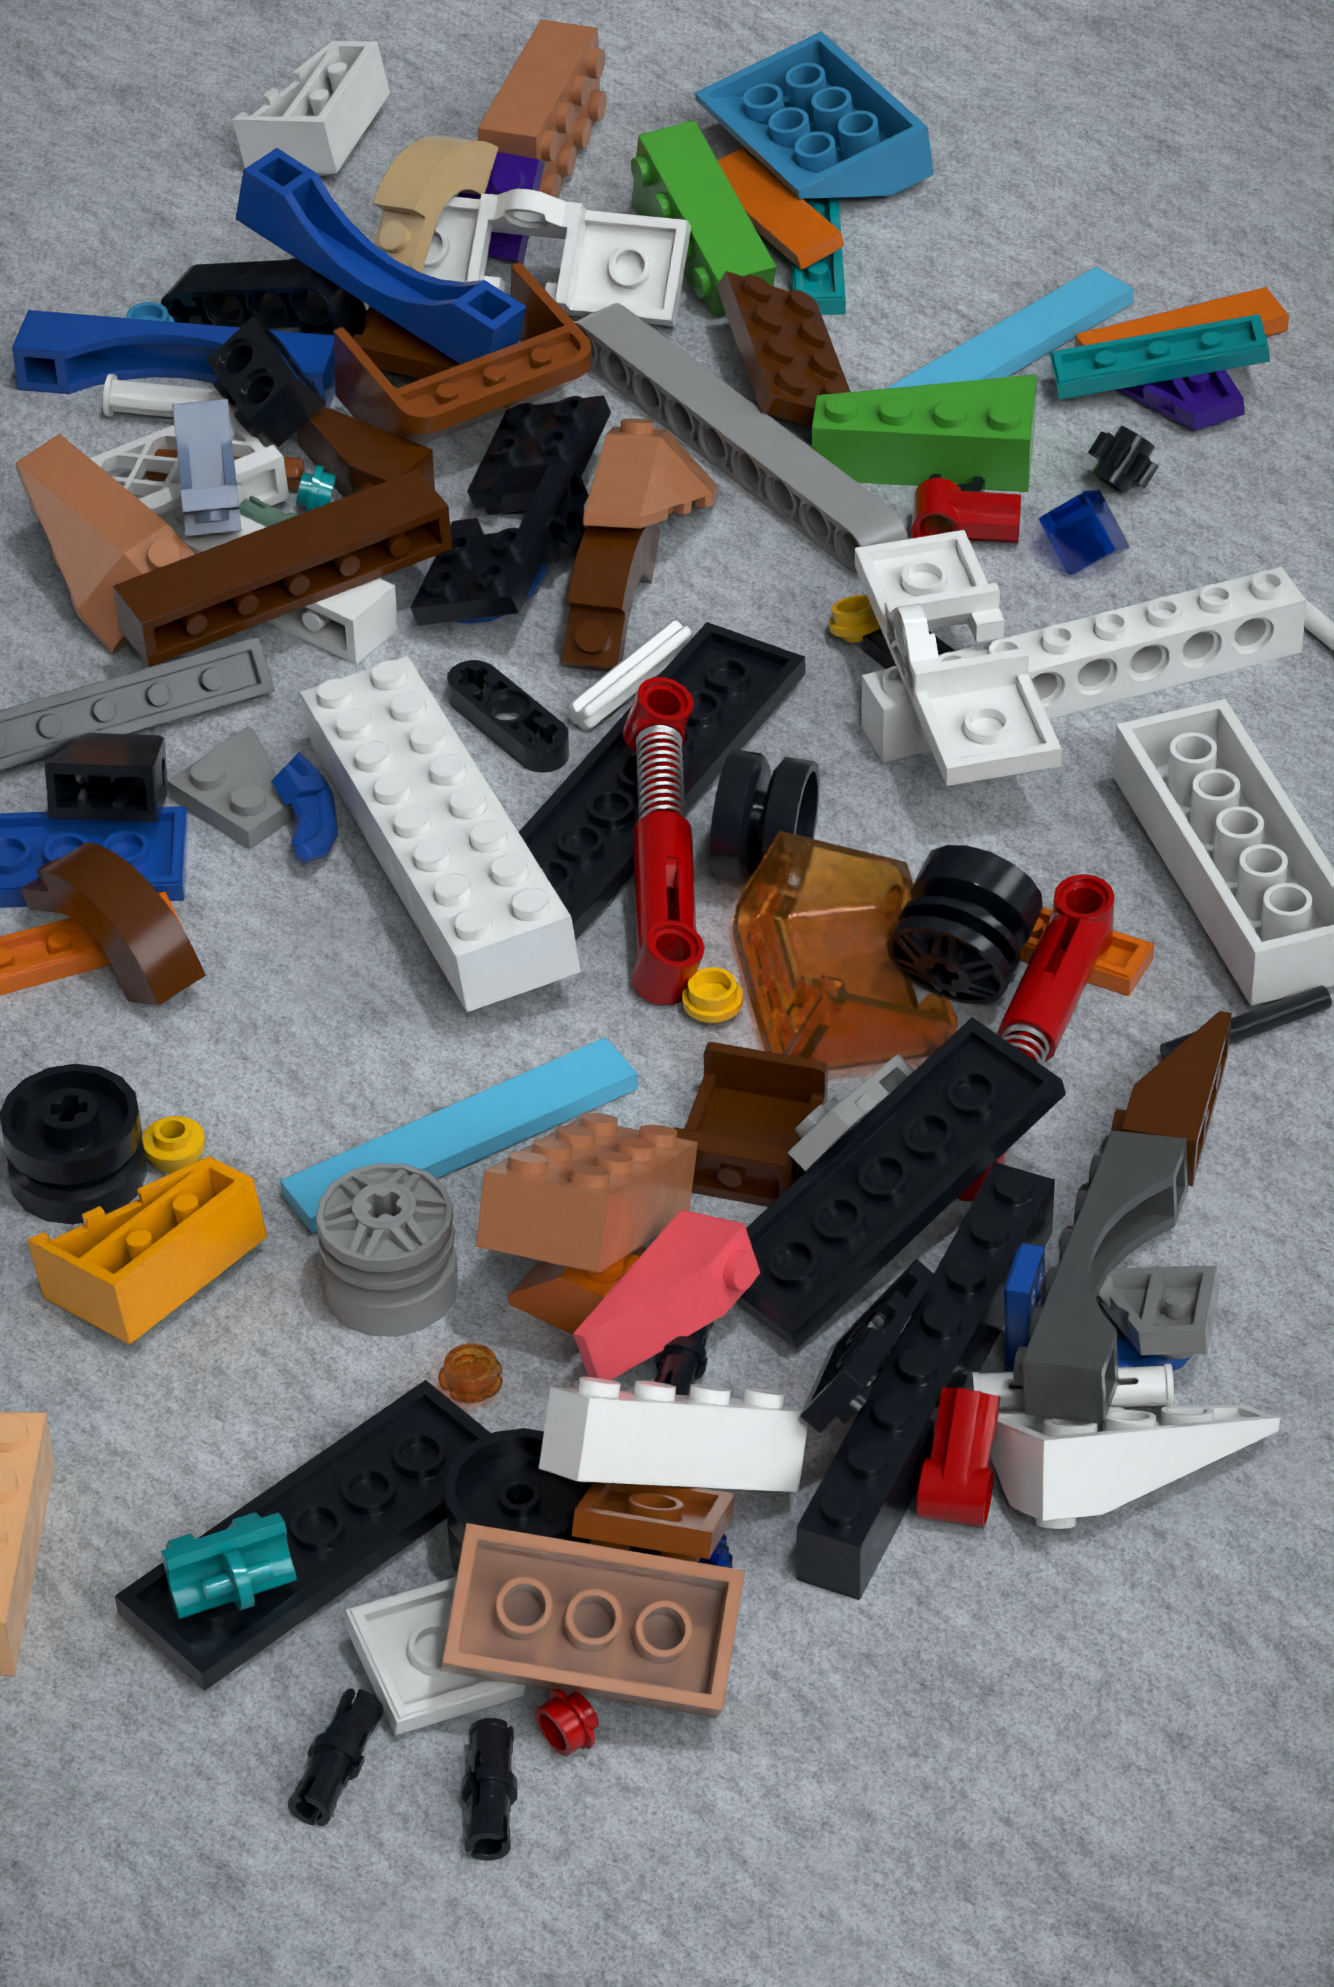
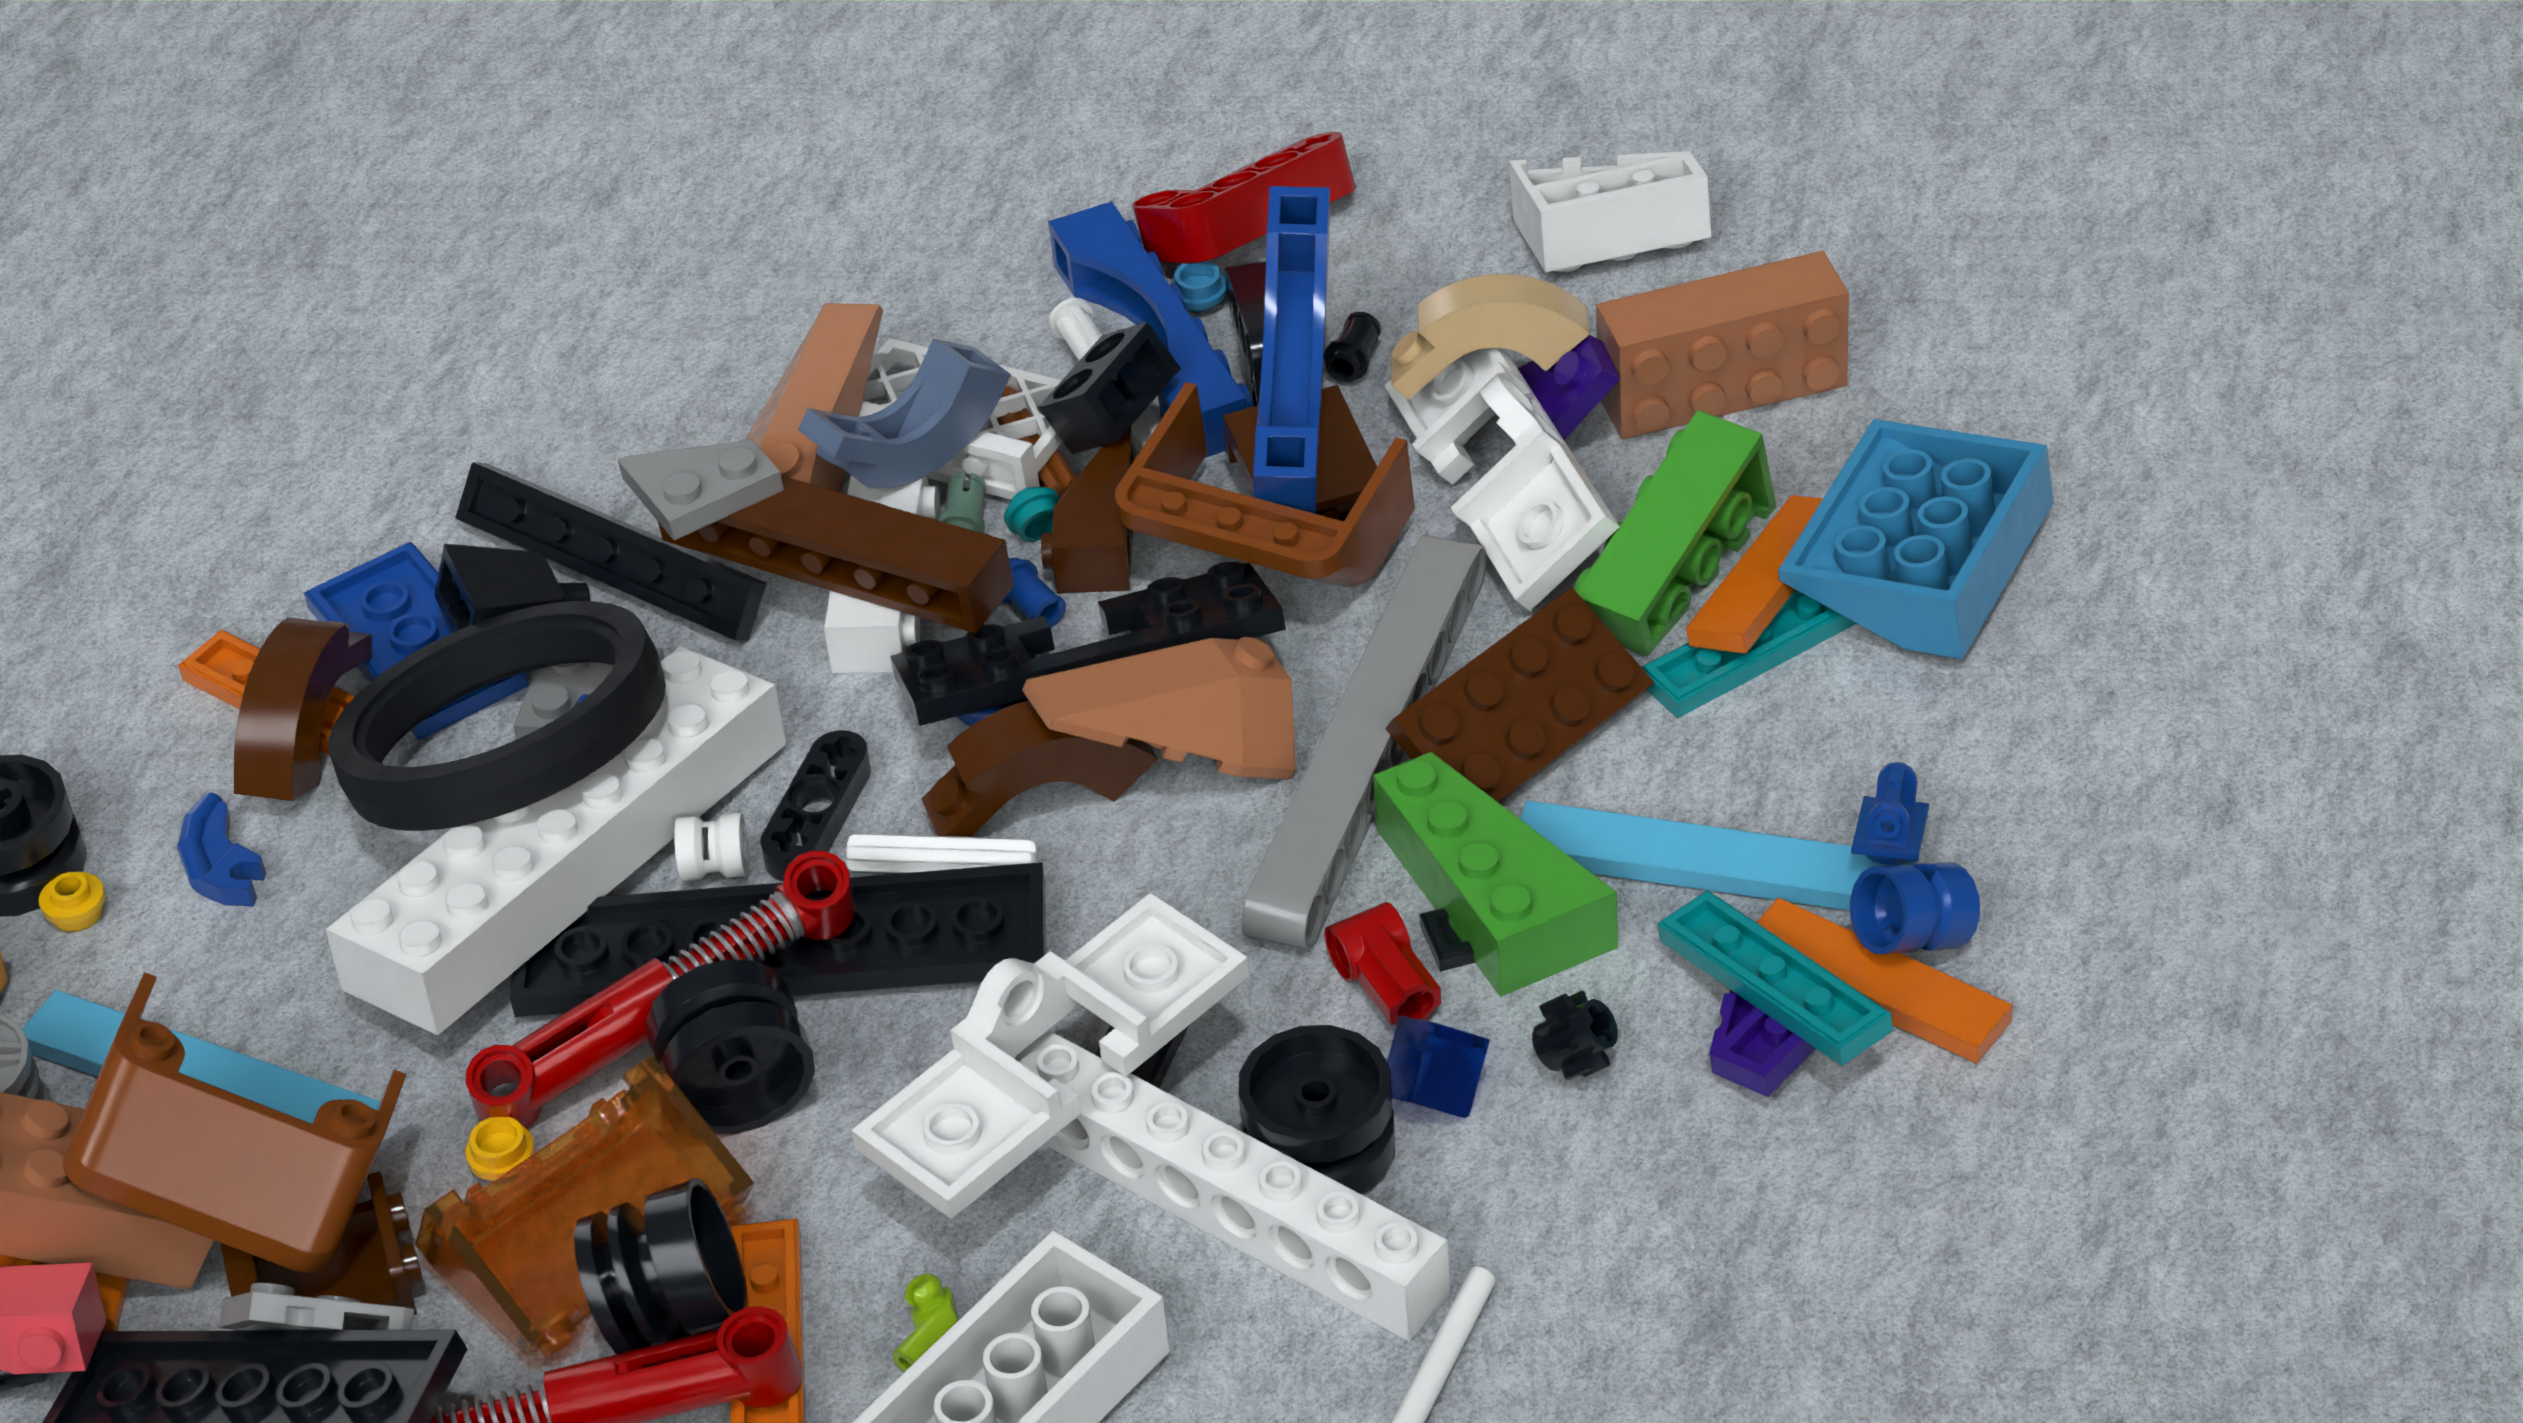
camera: 60 degrees right, 0 degrees up
(112, 265) = (1234, 209): none -> red beam
(170, 589) = (700, 483): none -> light grey wing
(220, 1052) = (212, 861): none -> blue piece
(348, 866) = (518, 771): none -> black tyre
(513, 770) = (720, 840): none -> white wheel
(638, 1089) = (218, 1157): none -> dark orange windscreen
(1063, 252) = (1892, 822): none -> blue hinge
(1090, 570) = (1322, 1102): none -> black wheel
(1097, 846) = (932, 1315): none -> lime arm
(1163, 275) = (1914, 907): none -> blue wheel

